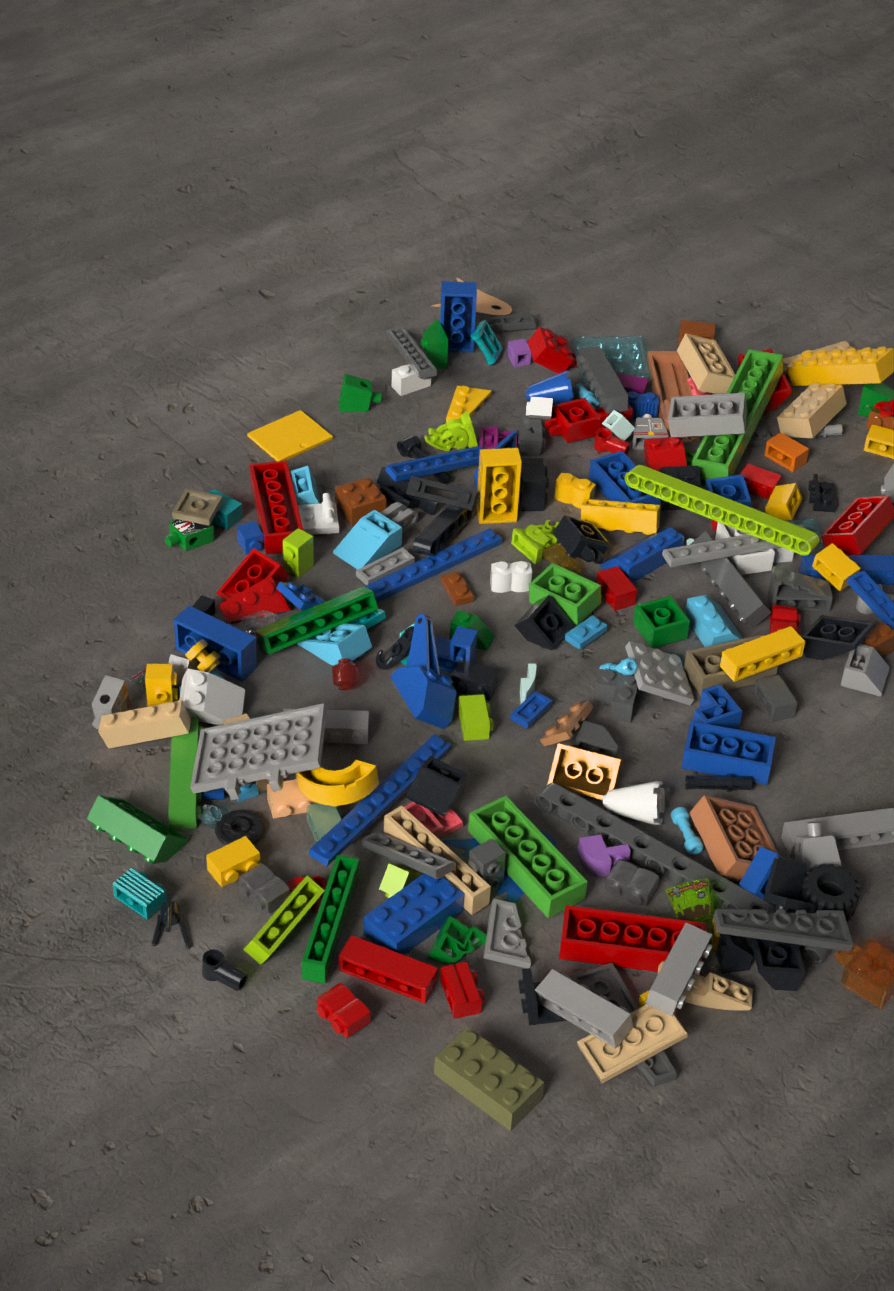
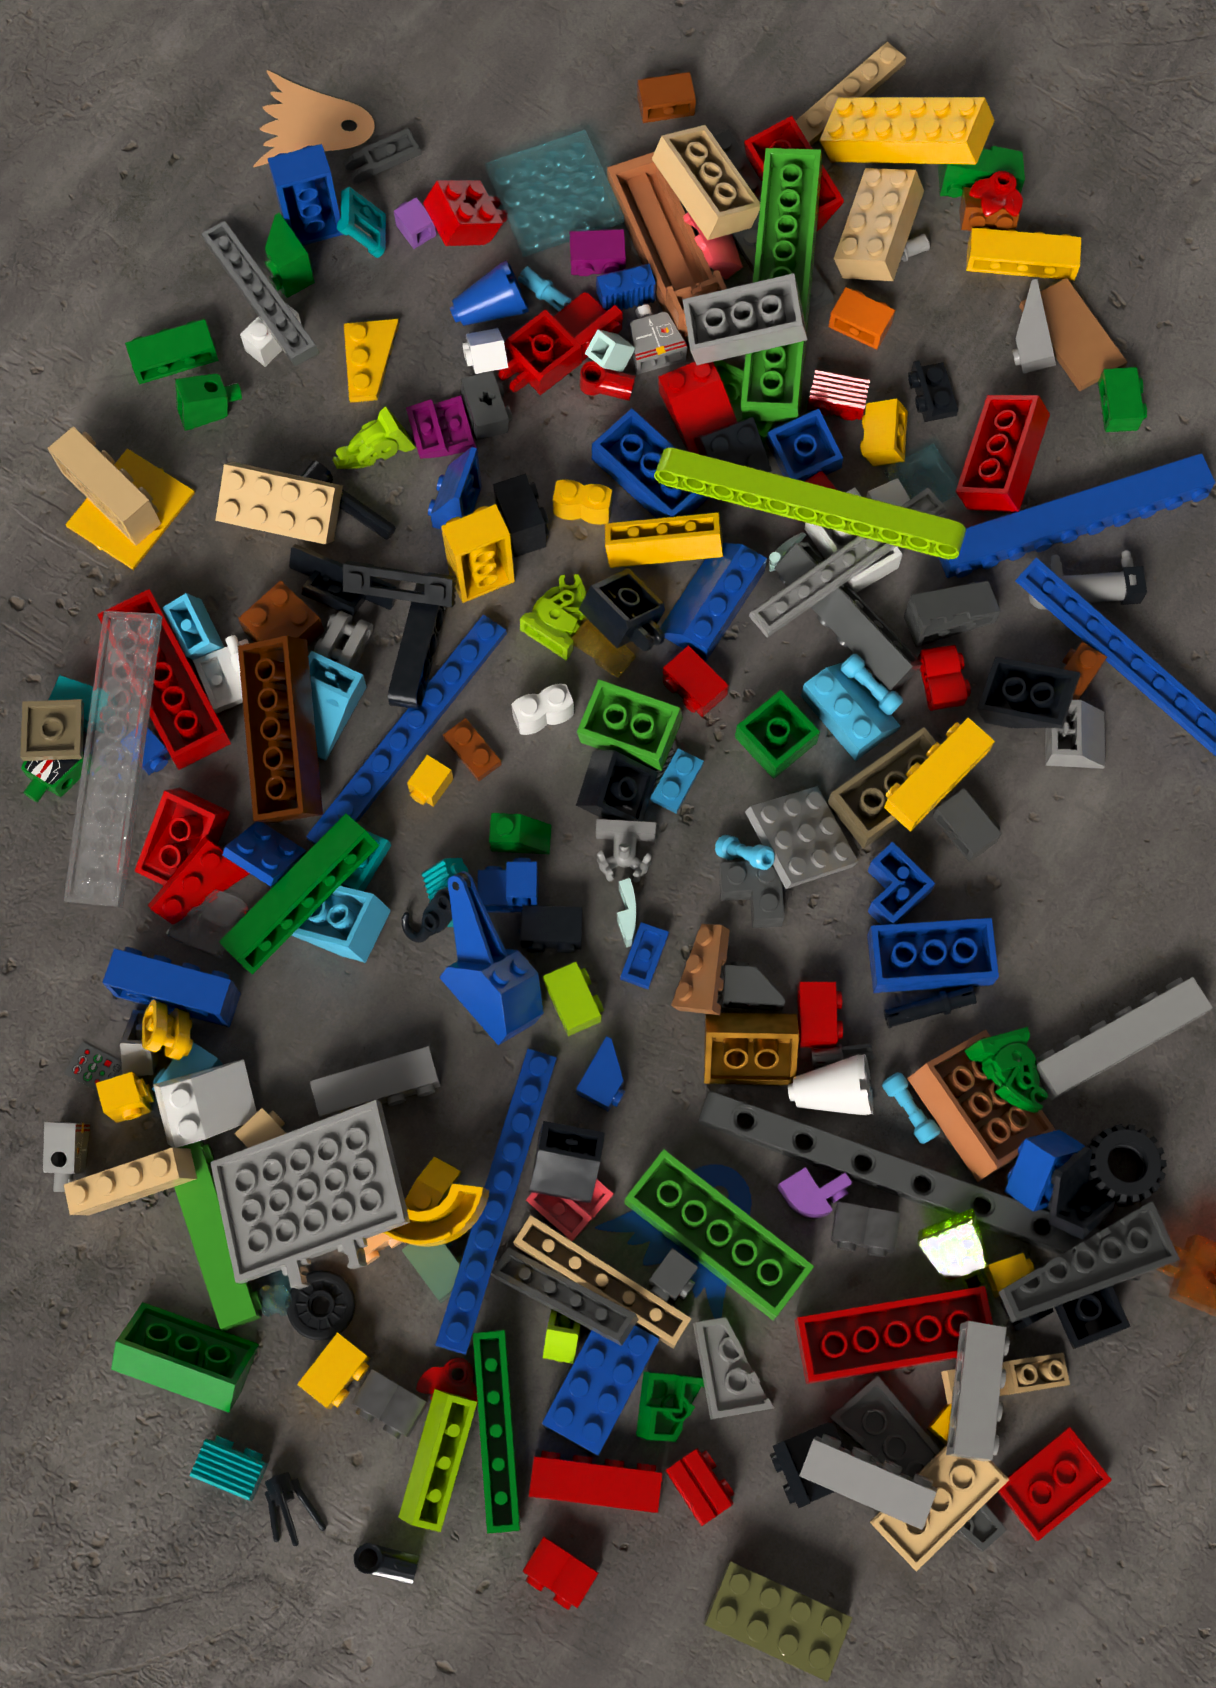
camera: 15 degrees left, 30 degrees up
(205, 605) = (127, 916): black slope -> none
(227, 530) = (113, 759): none -> clear plate
(280, 414) = (105, 485): none -> tan brick
(298, 553) = (227, 769): lime brick -> none
(333, 371) = (171, 351): none -> green brick
(338, 538) = (280, 729): none -> reddish brown brick
(345, 674) = (372, 981): clear red head -> none
(380, 442) = (278, 502): none -> tan brick
(385, 566) = (358, 743): light grey plate -> none
(423, 593) = (429, 781): none -> yellow brick
(434, 464) = (370, 516): blue plate -> none
(477, 761) = (603, 1079): none -> blue slope
(540, 649) = (624, 845): none -> light grey piece
(602, 379) = (562, 263): dark grey brick -> none
(639, 764) = (818, 1014): none -> red brick
(720, 1059) = (1053, 1484): none -> red plate
(742, 625) = (855, 668): none -> medium azure piece
(764, 819) = (1011, 1067): none -> green piece
(816, 848) = (1091, 1104): light grey torso -> none
(835, 566) = (995, 556): yellow brick -> none

